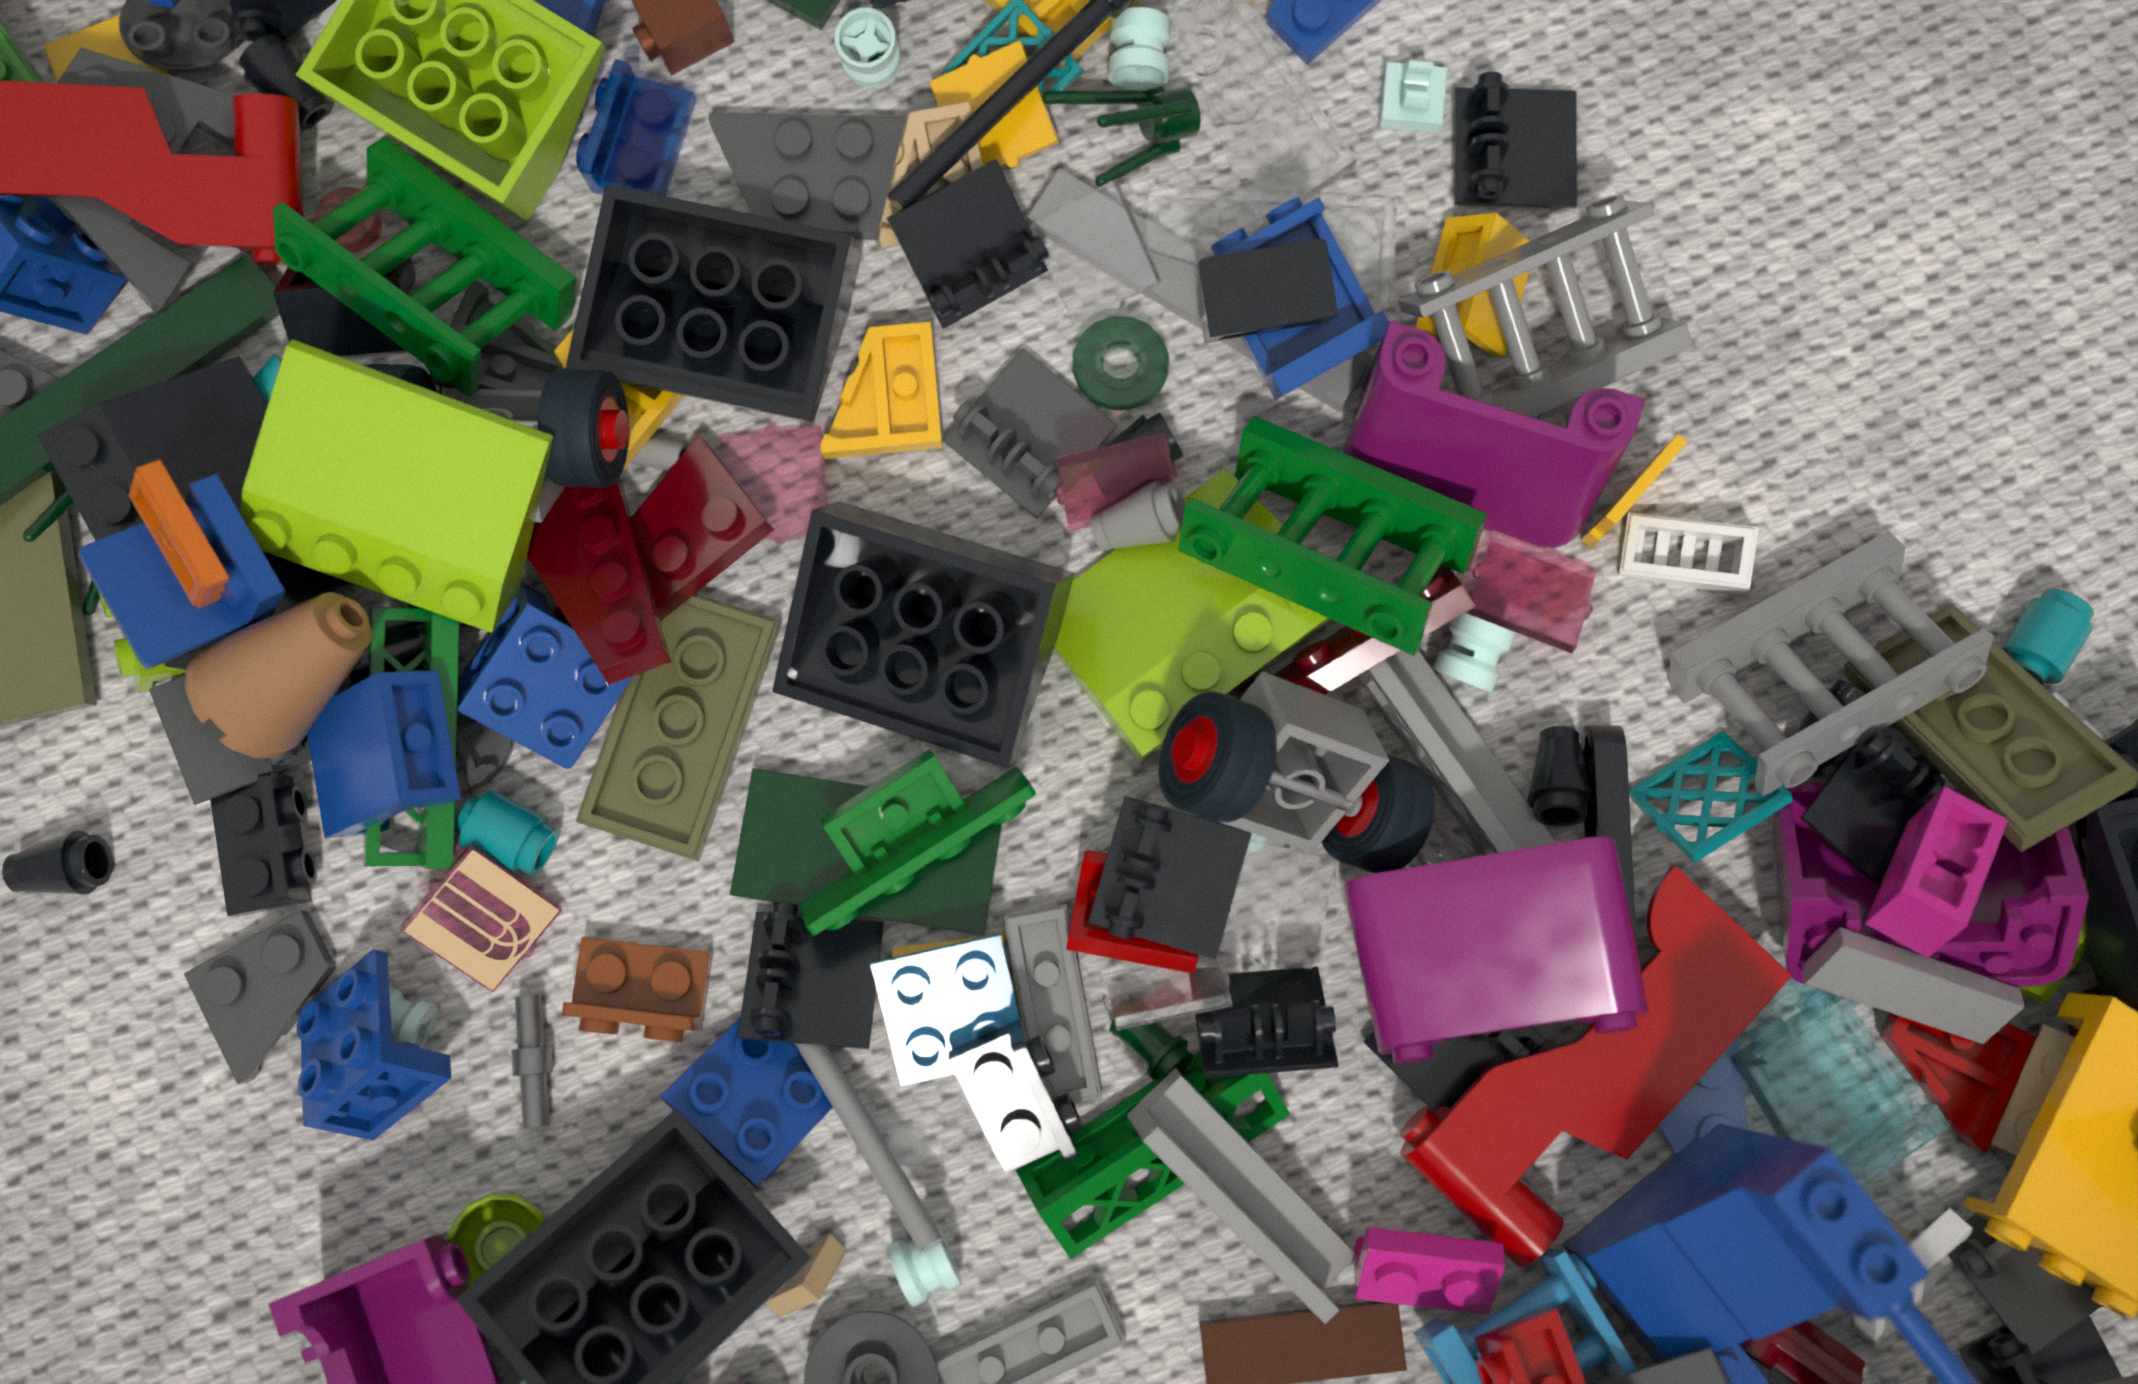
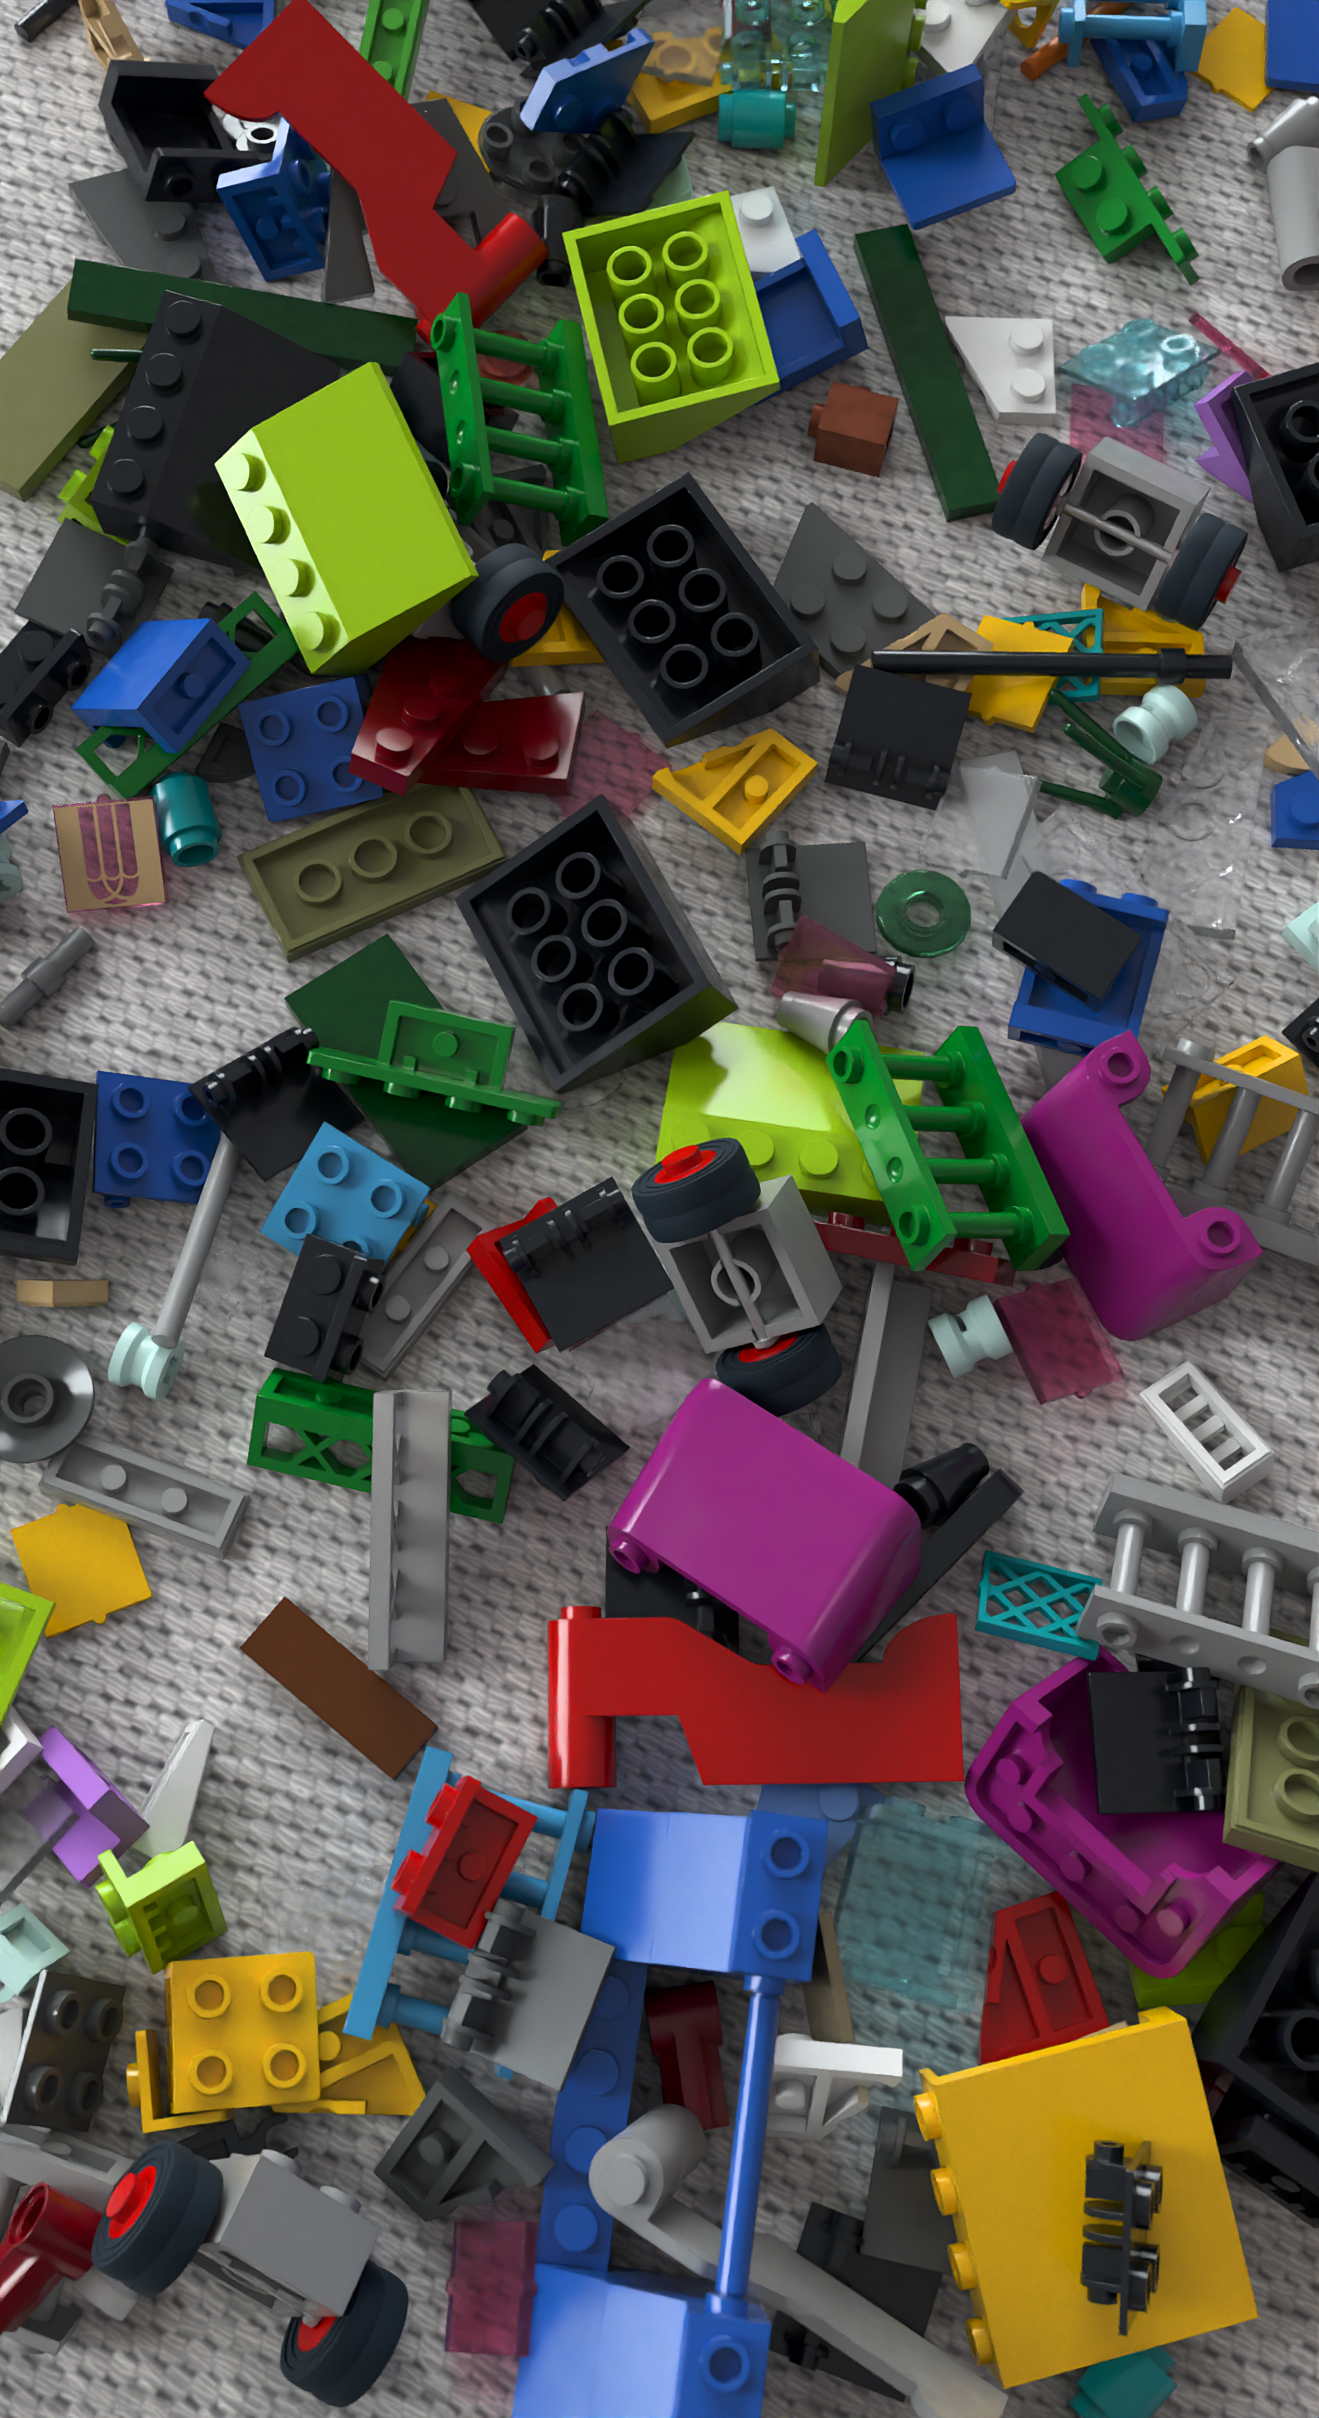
camera: 40 degrees right, 10 degrees down
(151, 601) = (158, 450): blue bracket -> none
(177, 534) = (181, 417): orange tile -> none
(277, 674) = (150, 568): medium nougat cone -> none
(634, 133) = (749, 469): clear blue bracket -> none
(640, 987) = (164, 999): dark orange bracket -> none
(868, 33) = (972, 544): light aqua wheel -> none
(1155, 1048) = (458, 1369): dark green pin -> none
(1160, 994) = (503, 1342): clear piece -> none
(1428, 1270) = (479, 1714): dark pink bracket -> none
(1634, 490) = (1203, 1336): yellow piece -> none
(1912, 985) = (1046, 1875): light grey tile -> none
(1937, 872) = (1142, 1792): dark pink brick -> none

